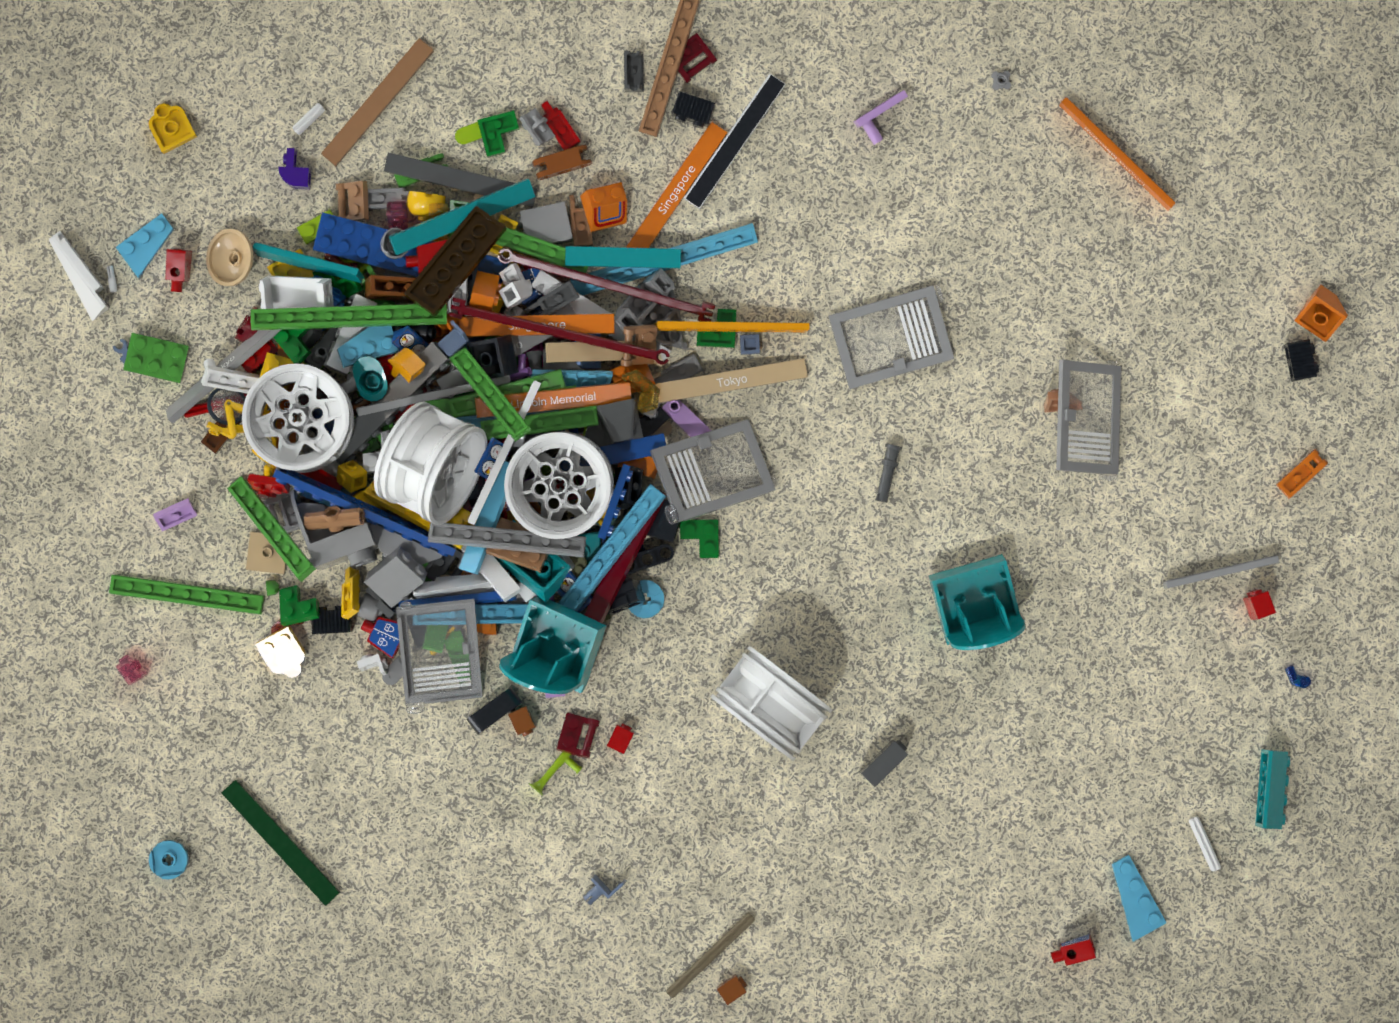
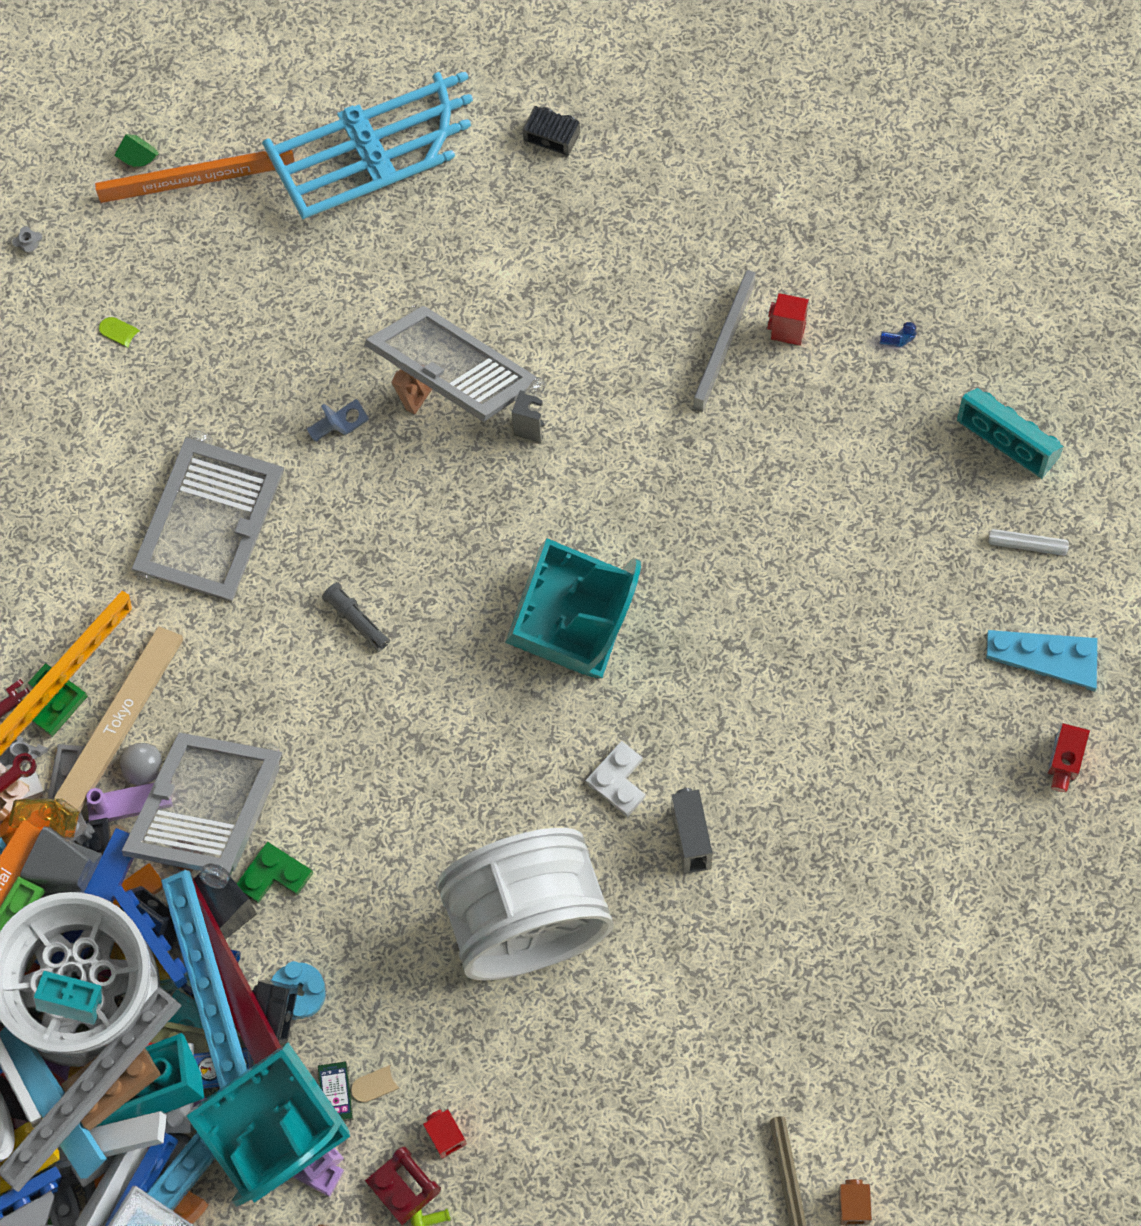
camera: 50 degrees left, 20 degrees down
(542, 499) = (68, 997): none -> teal hinge
(605, 660) = (336, 1087): none -> tile
(621, 679) = (373, 1085): none -> tan piece
(657, 559) = (254, 941): black beam -> none
(714, 412) = (140, 763): none -> light grey hair
(749, 344) = (96, 675): sand blue plate -> none
(888, 691) = (611, 781): none -> white plate
(978, 185) = (118, 330): none -> lime piece
(1006, 368) = (337, 421): none -> sand blue bracket
(1083, 488) = (527, 422): none -> dark grey hinge
(1109, 103) = (136, 151): none -> green brick
(1209, 252) = (368, 146): none -> medium azure piece
(1301, 474) = (675, 201): orange plate -> none
(1322, 313) = (518, 82): orange slope -> none

